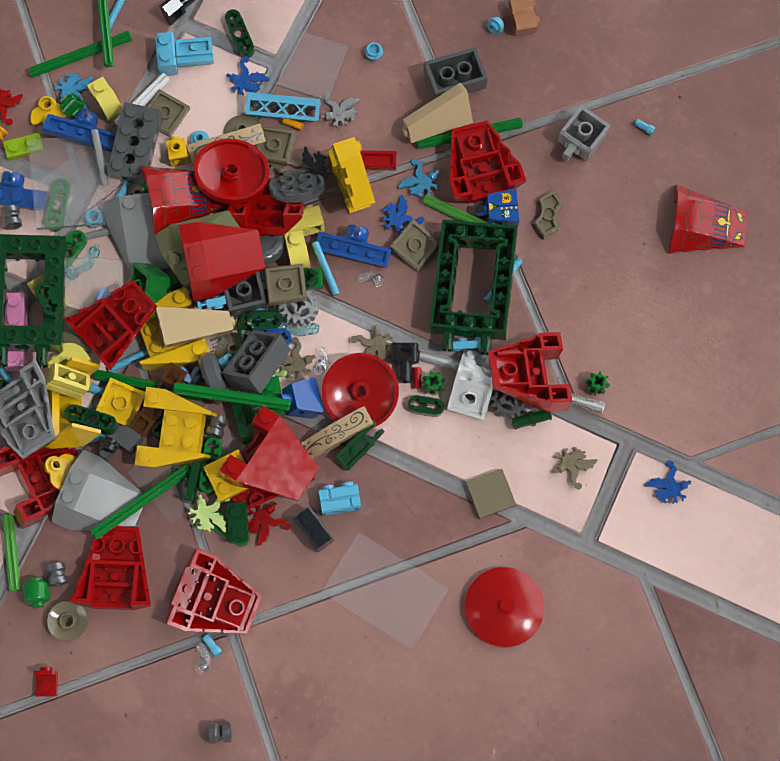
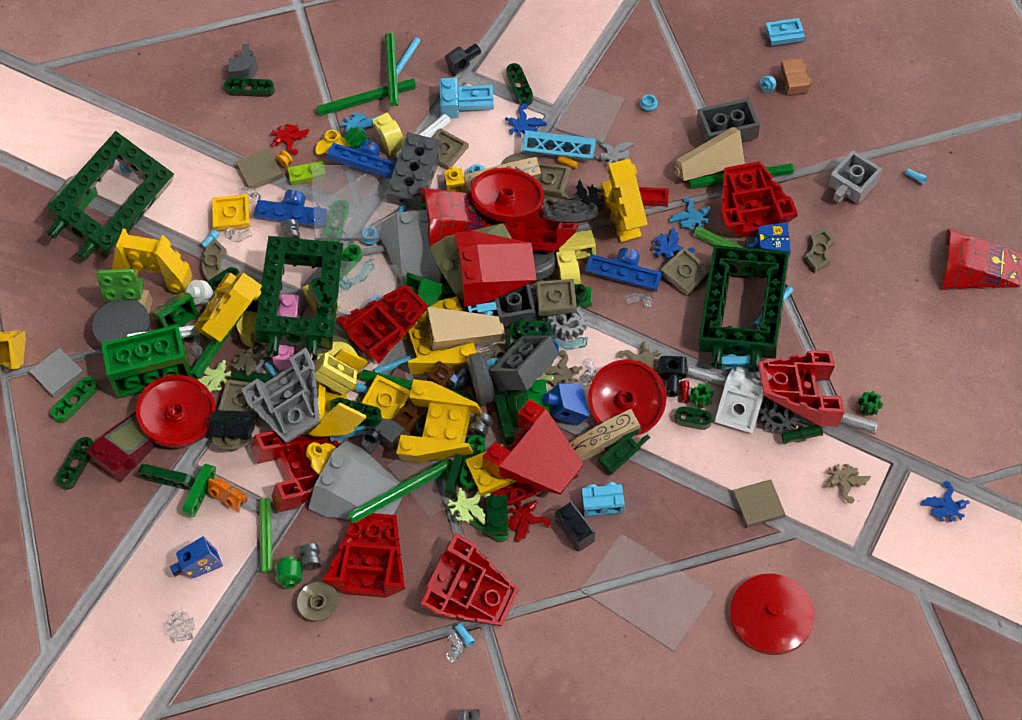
camera: 10 degrees right, 15 degrees down
(46, 682) = (291, 660): red bracket -> none
(99, 156) = (380, 182): light grey bar -> none
(232, 396) = (498, 391): green axle -> none
(325, 268) = (595, 287): medium azure bar -> none

